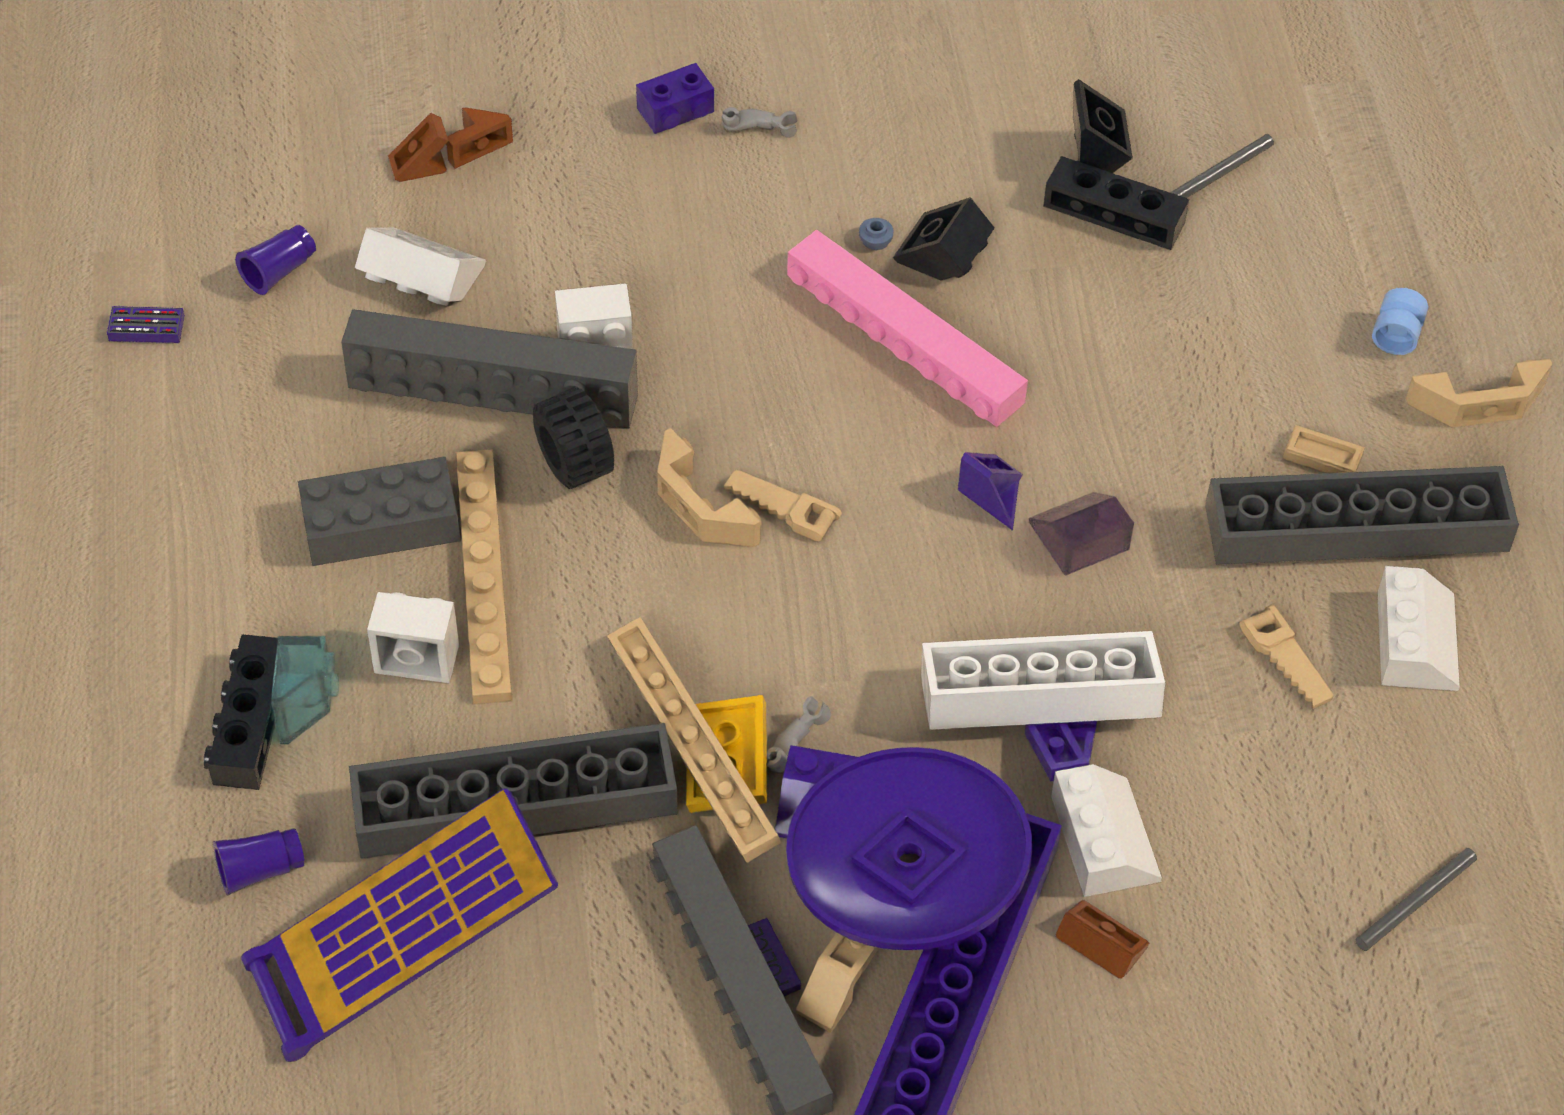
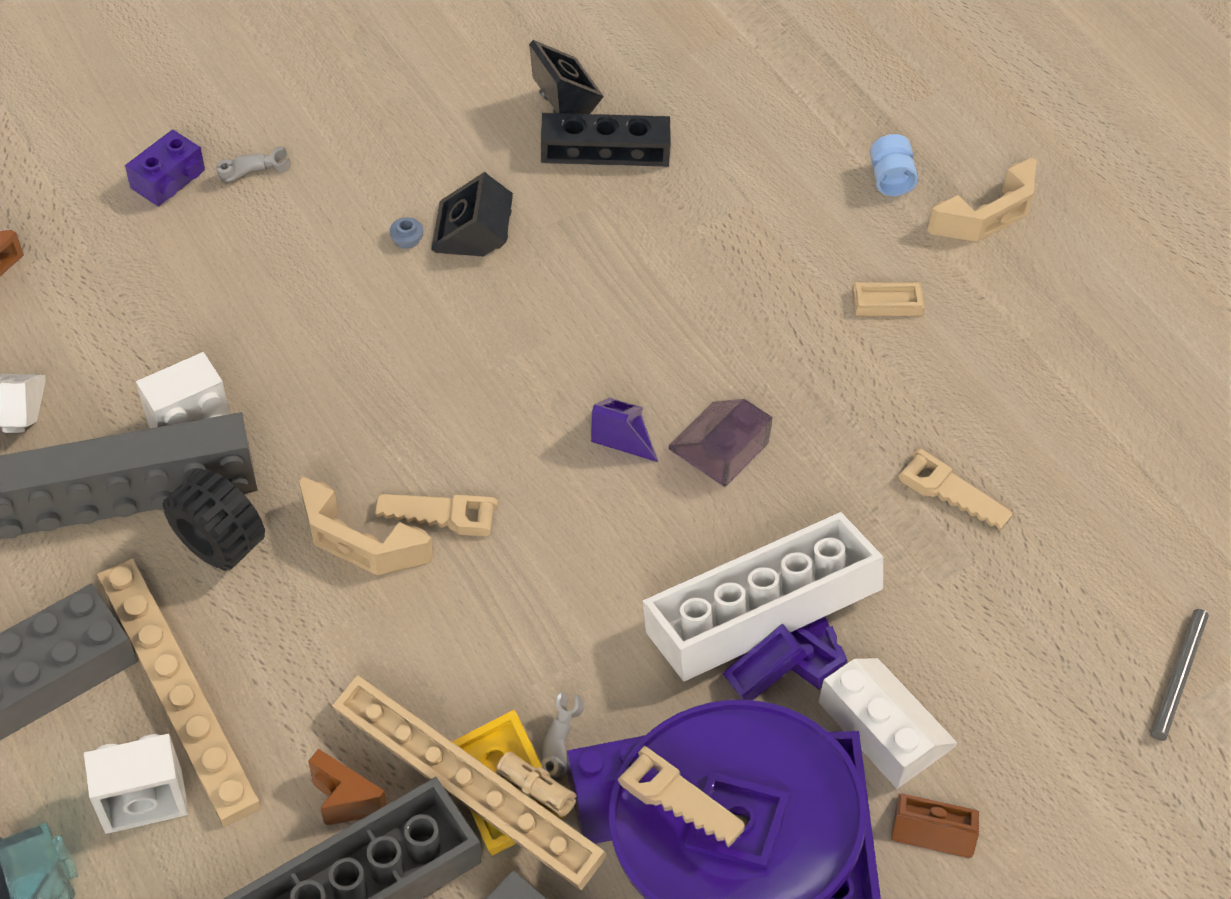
camera: 25 degrees left, 0 degrees up
(586, 708) = (350, 793): none -> dark orange slope
(748, 761) = (536, 784): none -> tan pin
(863, 814) = (680, 797): none -> tan piece
(907, 328) = (476, 308): bright pink brick -> none
(1013, 741) = (765, 664): none -> dark purple tile
(1224, 166) = (679, 81): dark grey bar -> none
(1360, 515) = (951, 343): dark grey brick -> none
(1417, 631) = (1048, 429): white slope -> none

